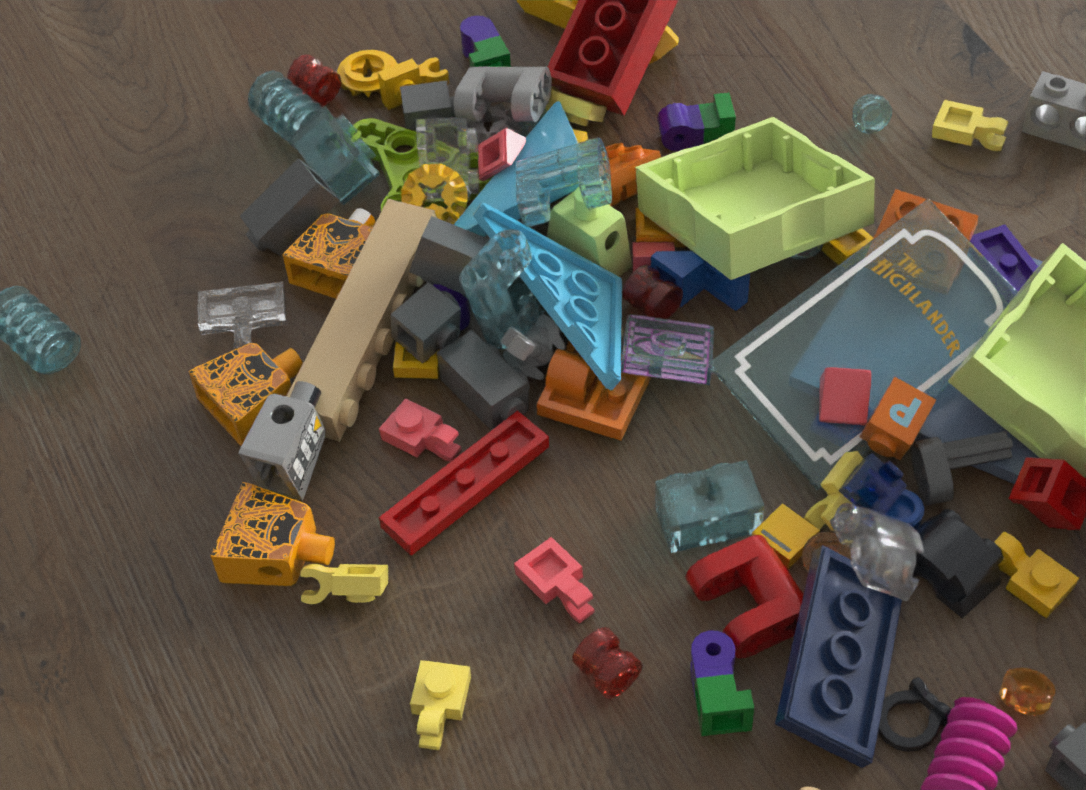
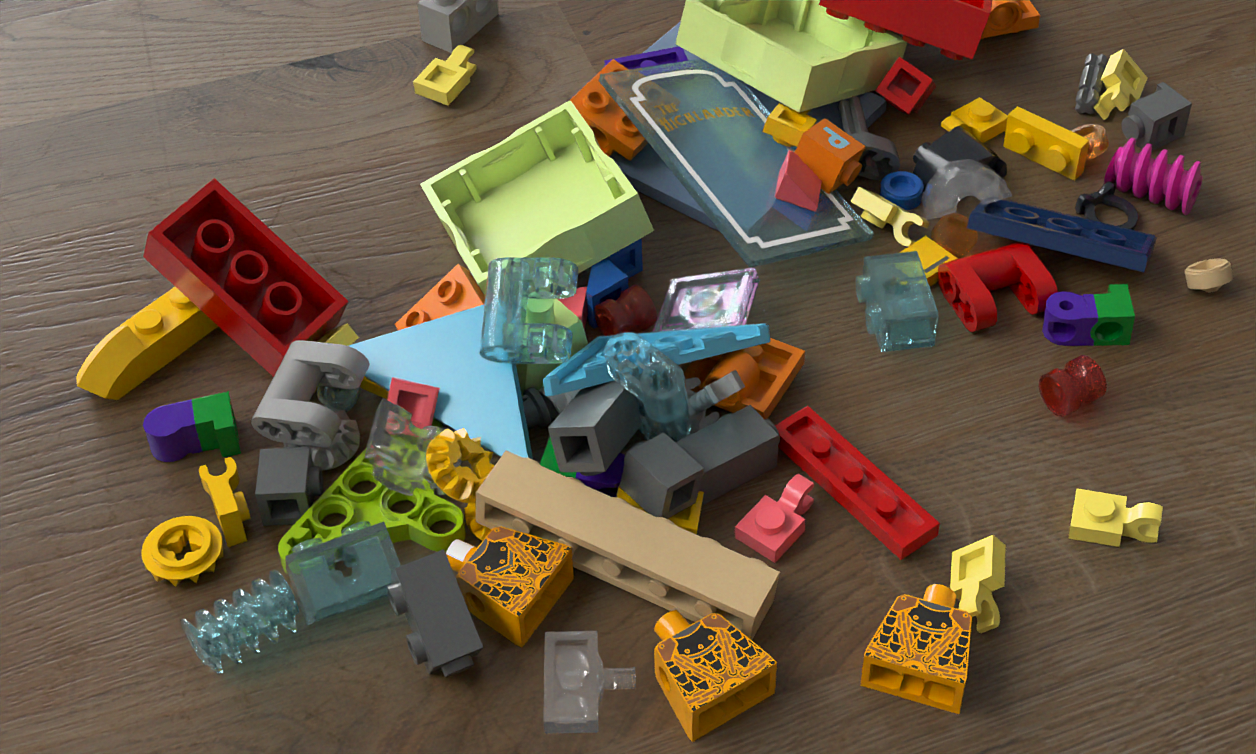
camera: 85 degrees left, 5 degrees down
(285, 441) = (813, 609): light grey torso -> none
(315, 79) = (183, 598): clear red wheel -> none
(555, 573) = (974, 420): coral plate -> none
(696, 124) = (385, 254): leg -> none
(871, 113) = (411, 133): clear light blue plate -> none
(874, 484) = (893, 185): clear blue tile -> none
(931, 376) = (788, 125): none -> yellow plate
(1011, 627) = (1046, 143): none -> yellow plate

